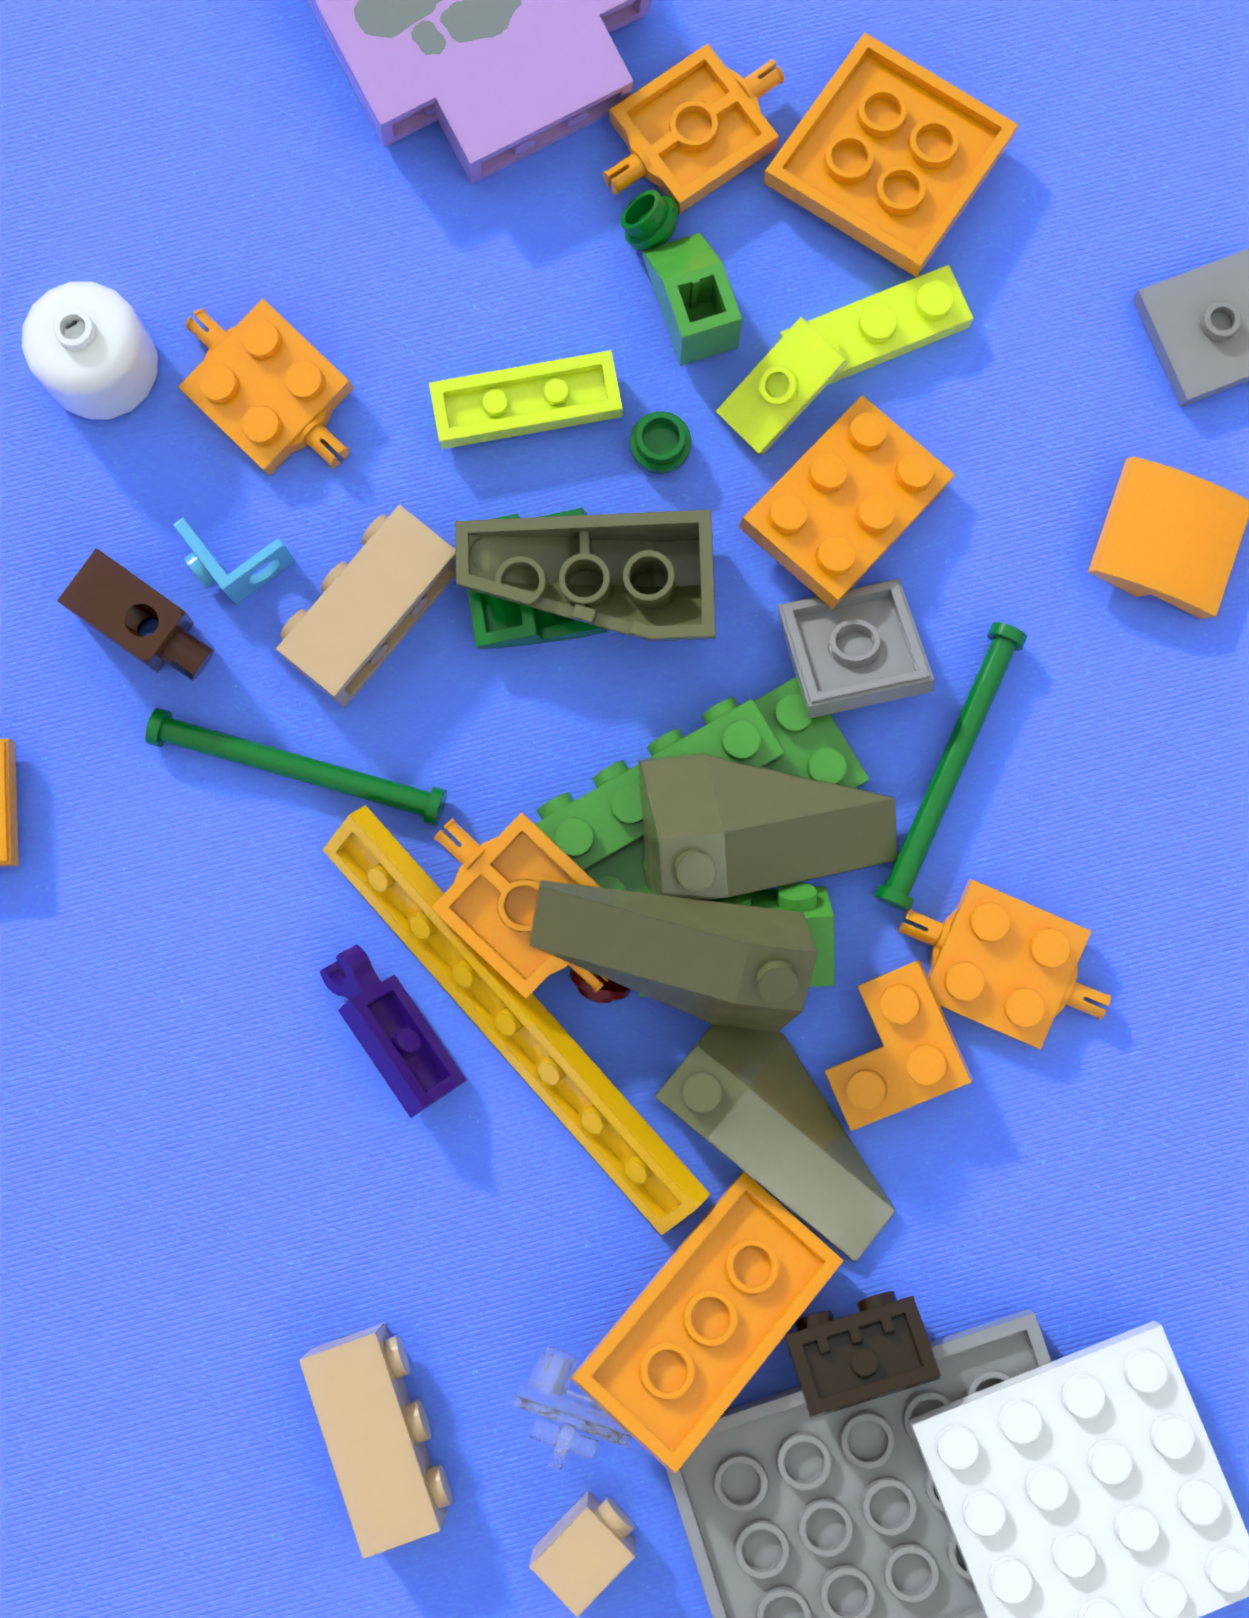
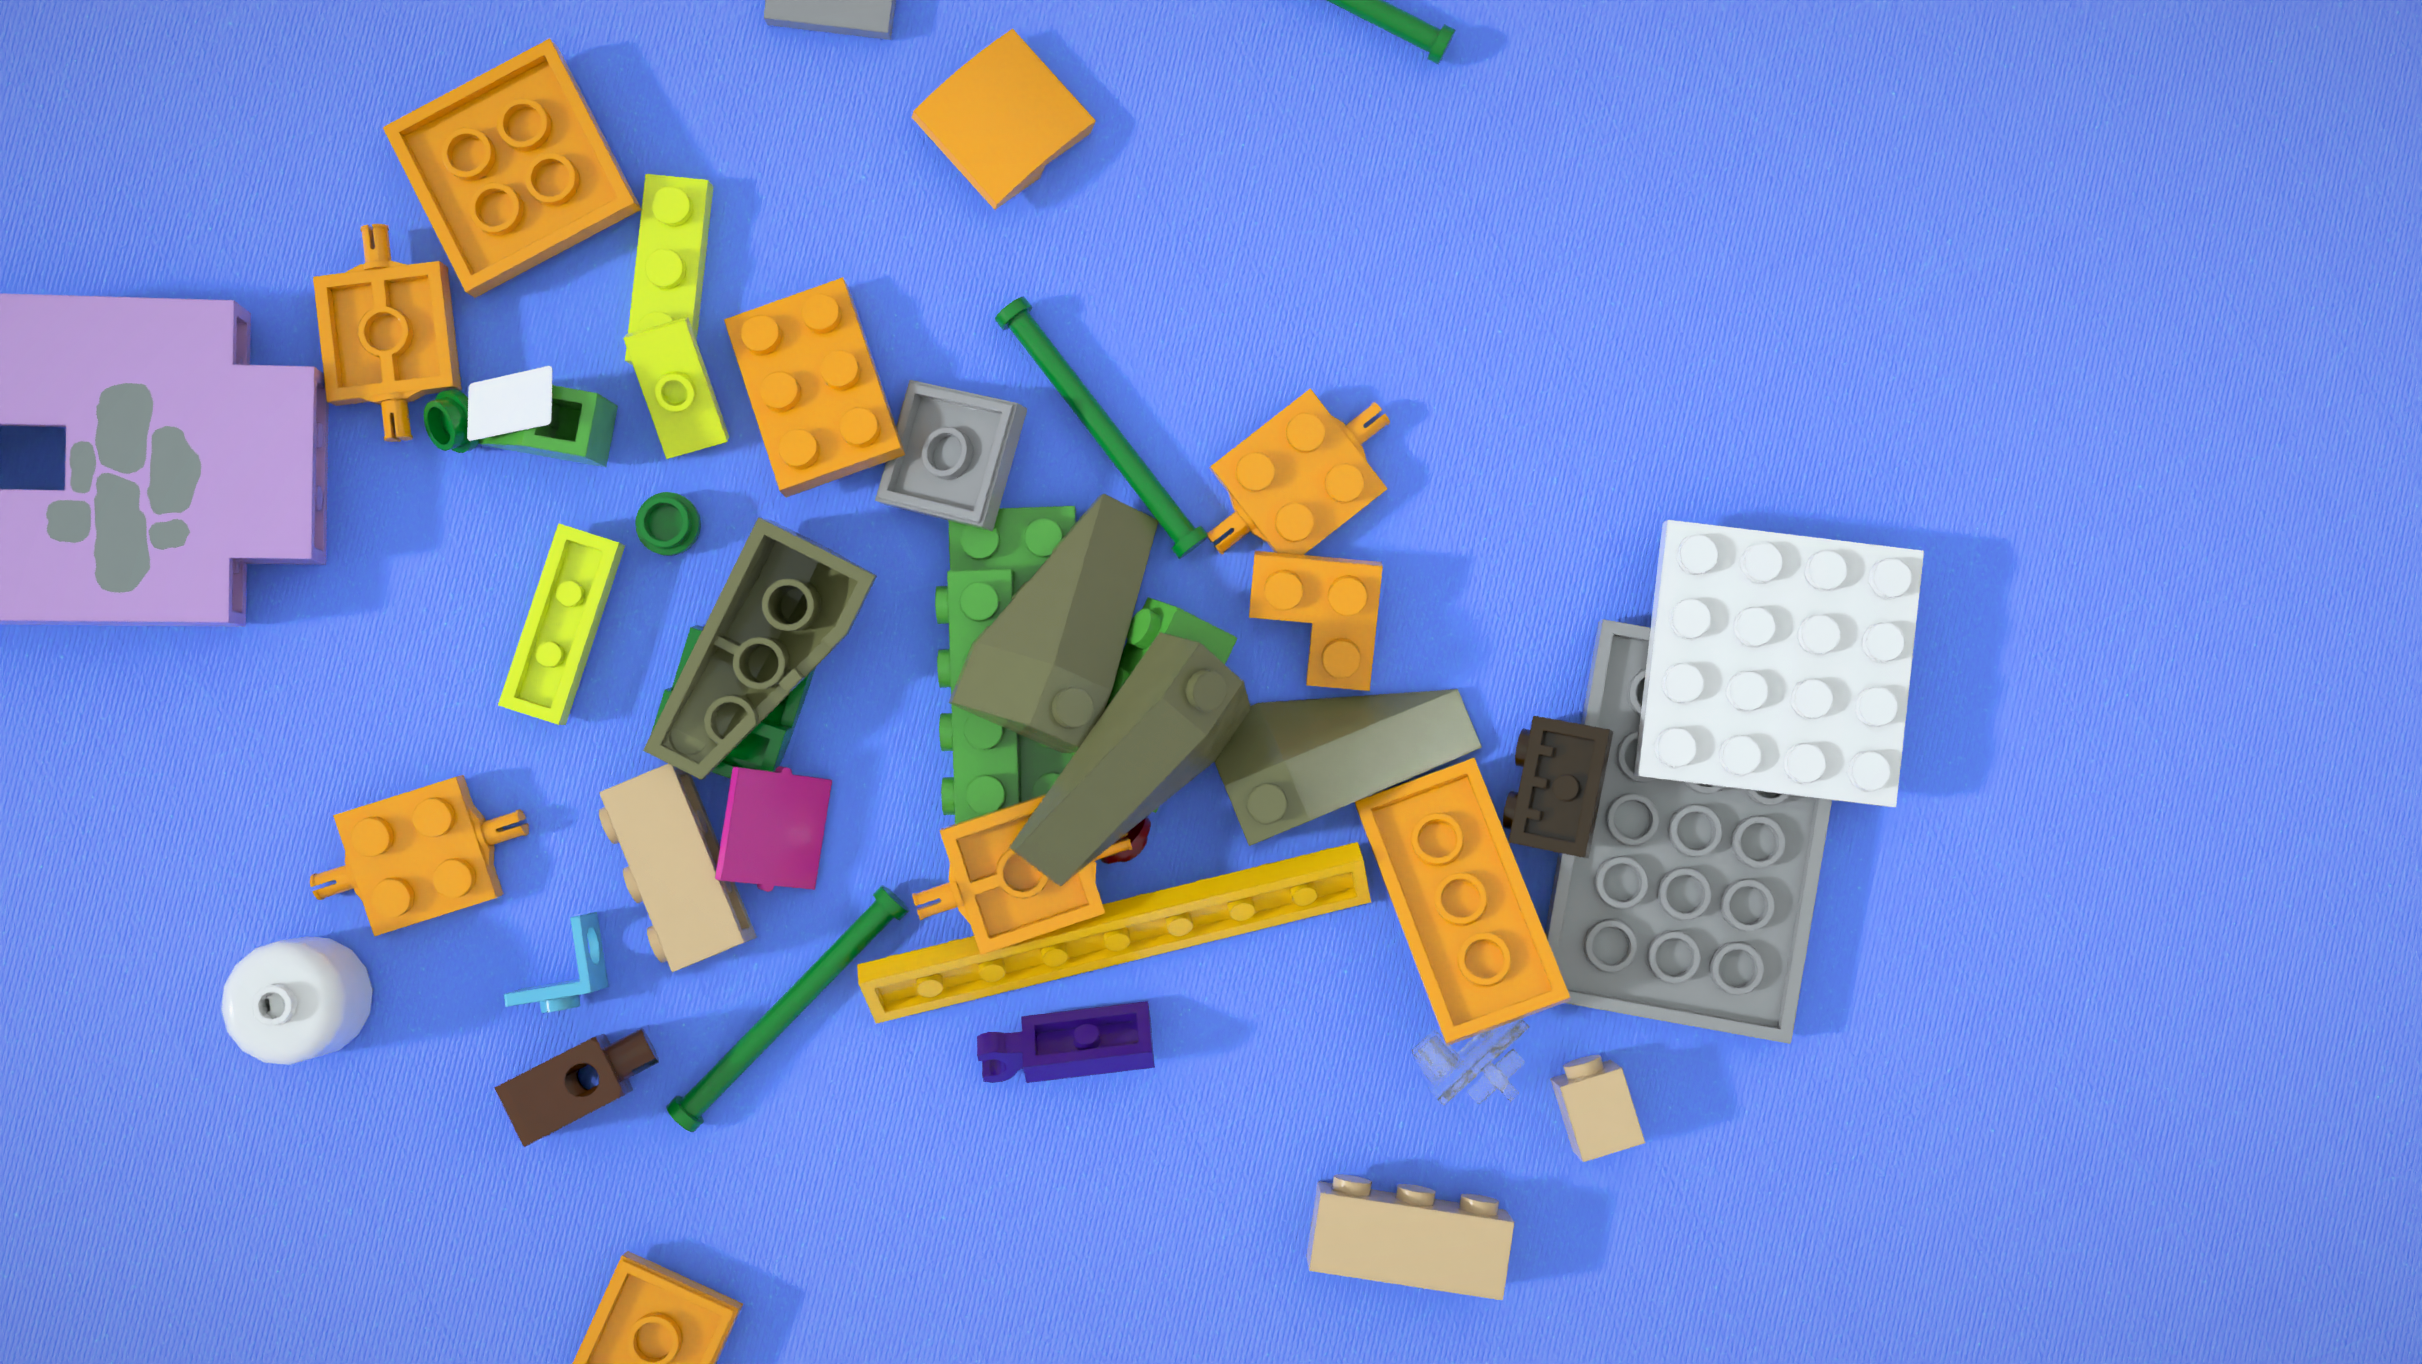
camera: 65 degrees left, 5 degrees up
(446, 669) = (773, 828): none -> dark pink piece
(692, 253) = (510, 403): none -> white sticker

